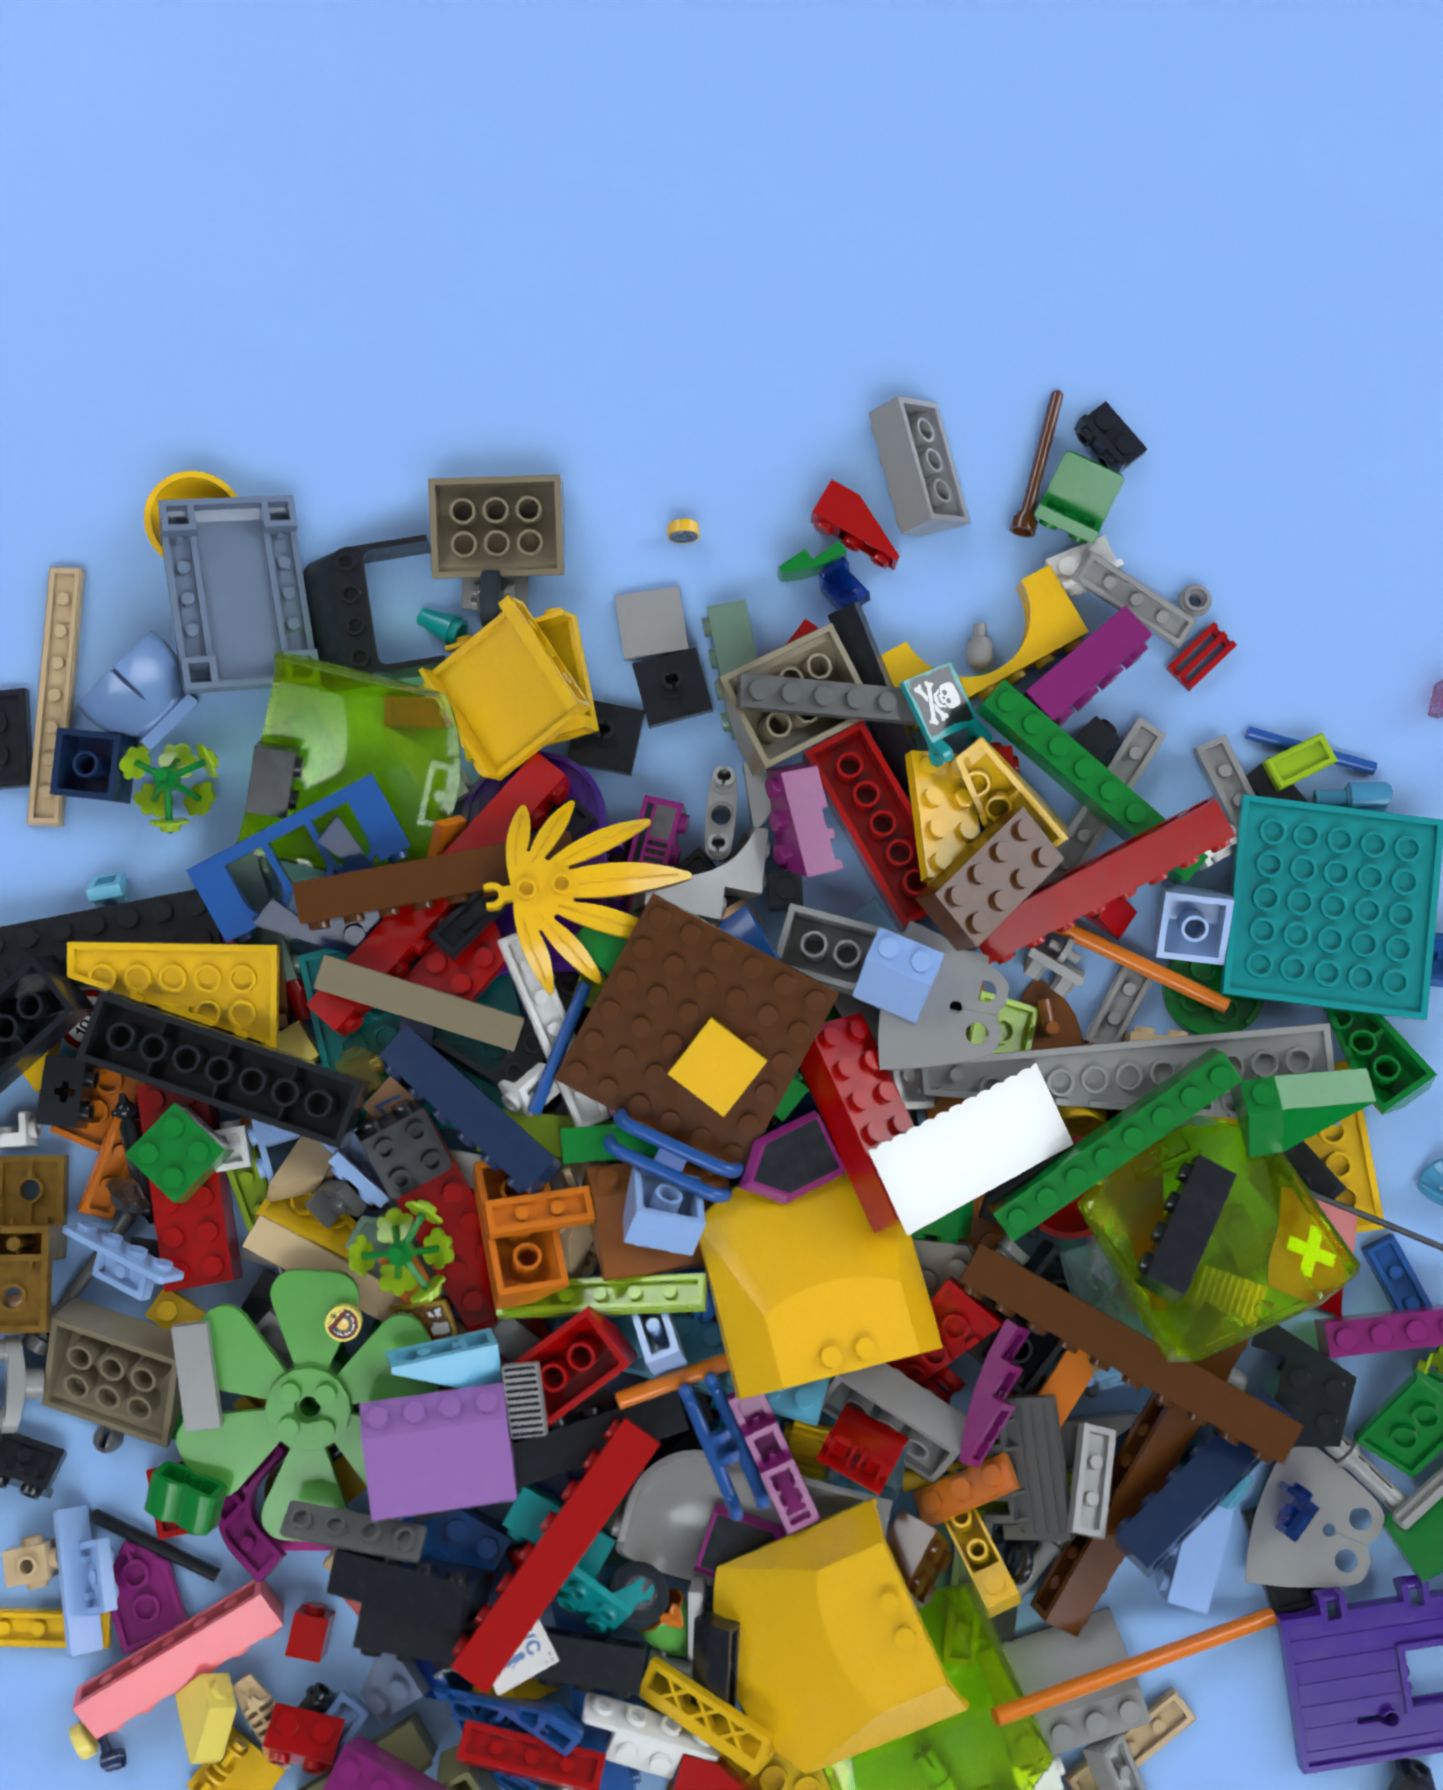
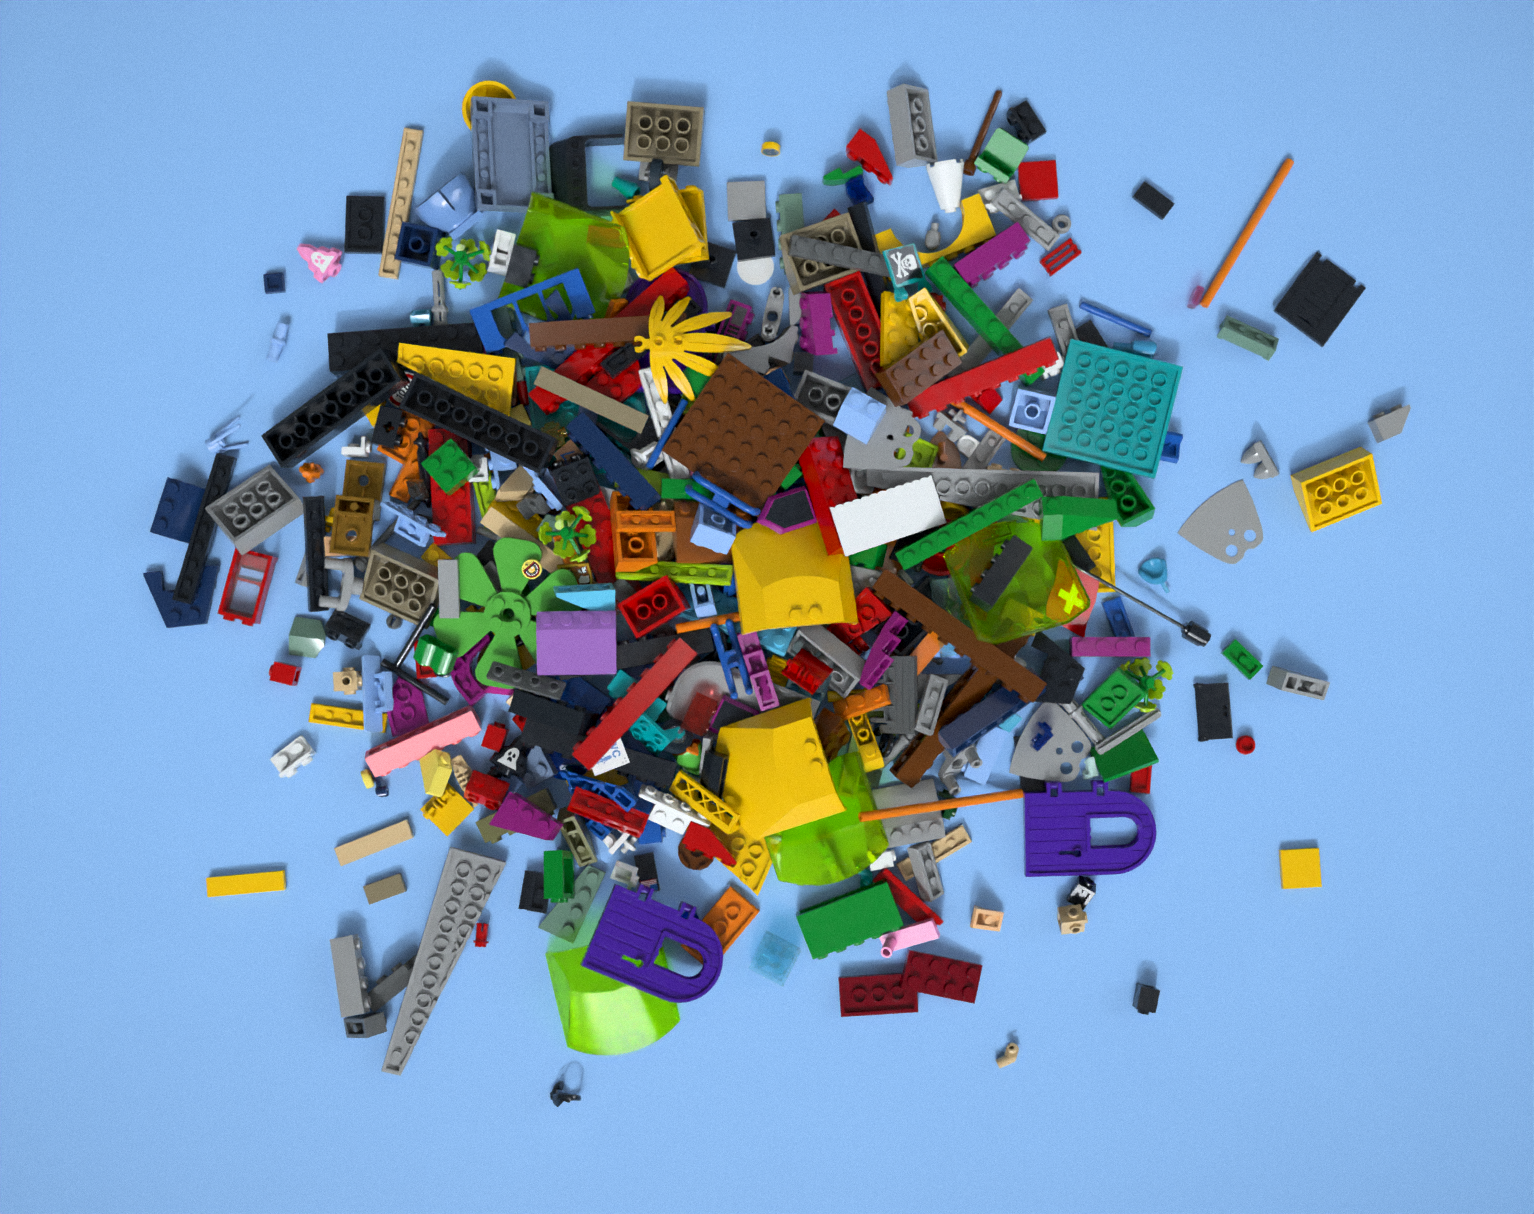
camera: 10 degrees right, 5 degrees up
(136, 872) = (439, 310): none -> light grey pin
(146, 1462) = (415, 635): none -> black bar
(236, 760) = (501, 252): none -> white brick
(342, 1674) = (511, 759): none -> black rock
(525, 1399) = (626, 620): light grey tile -> none
(675, 1547) = (699, 713): none -> clear red bracket
(682, 740) = (756, 271): none -> white sticker
(717, 1066) = (752, 453): yellow tile -> none
(992, 554) = (947, 183): none -> white cone
(1087, 999) = (967, 445): none -> white tile
(1098, 737) = (993, 297): black brick -> none
(1139, 1590) = (953, 766): none -> light grey connector
(1144, 532) = (1038, 180): none -> red tile
(1144, 1641) = (948, 812): none -> dark green bracket
(1299, 761) = (1107, 324): lime tile -> none
(1344, 543) = (1153, 200): none -> black tile
(1390, 1557) = (1090, 769): none -> light aqua tile

